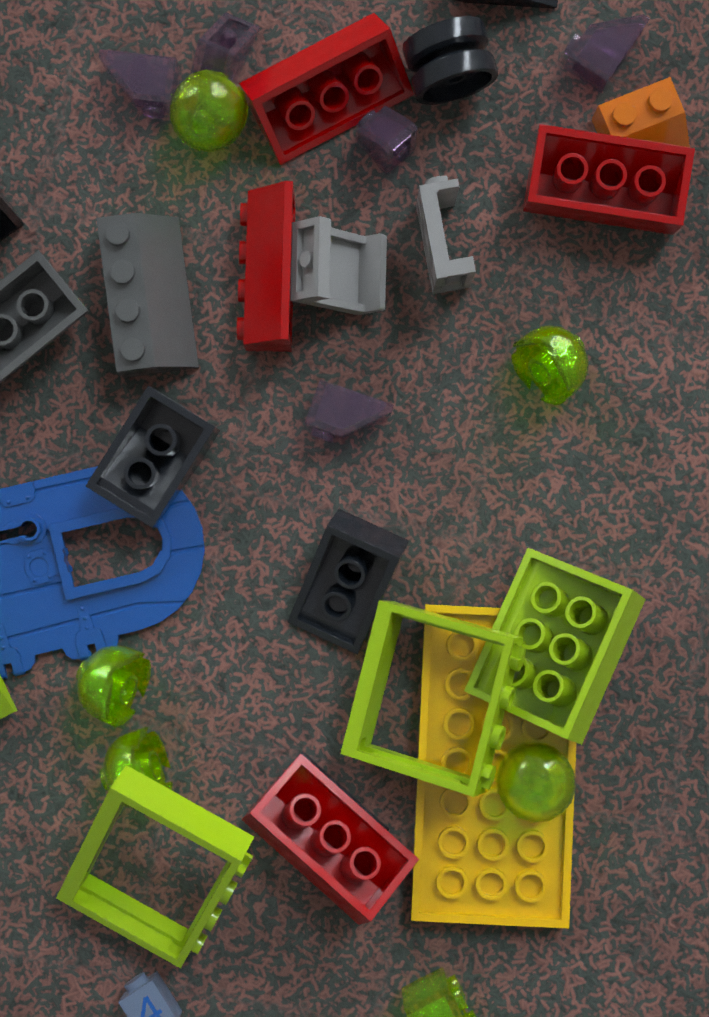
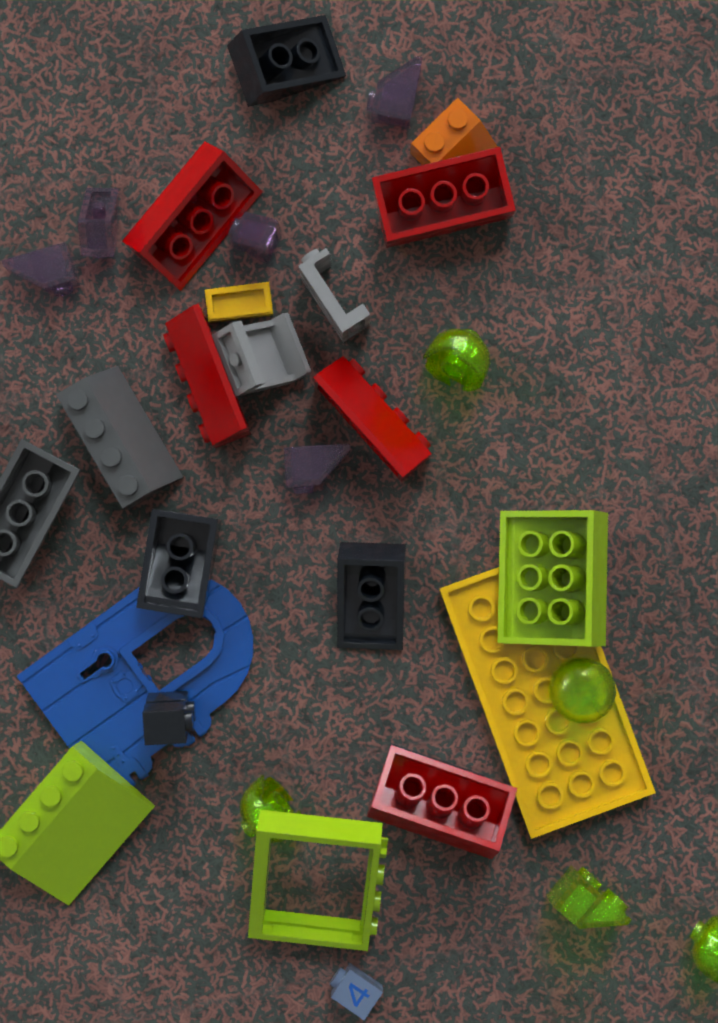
camera: 20 degrees left, 0 degrees up
(68, 621) = (168, 718): none -> black piece
(110, 682) = (219, 752): clear neon green cylinder -> none
(208, 111) = (107, 273): clear neon green cylinder -> none
(338, 202) = (238, 302): none -> yellow tile
(372, 687) = (425, 671): lime window -> none
(430, 386) = (372, 418): none -> red slope
(450, 60) = (280, 155): black wheel -> none

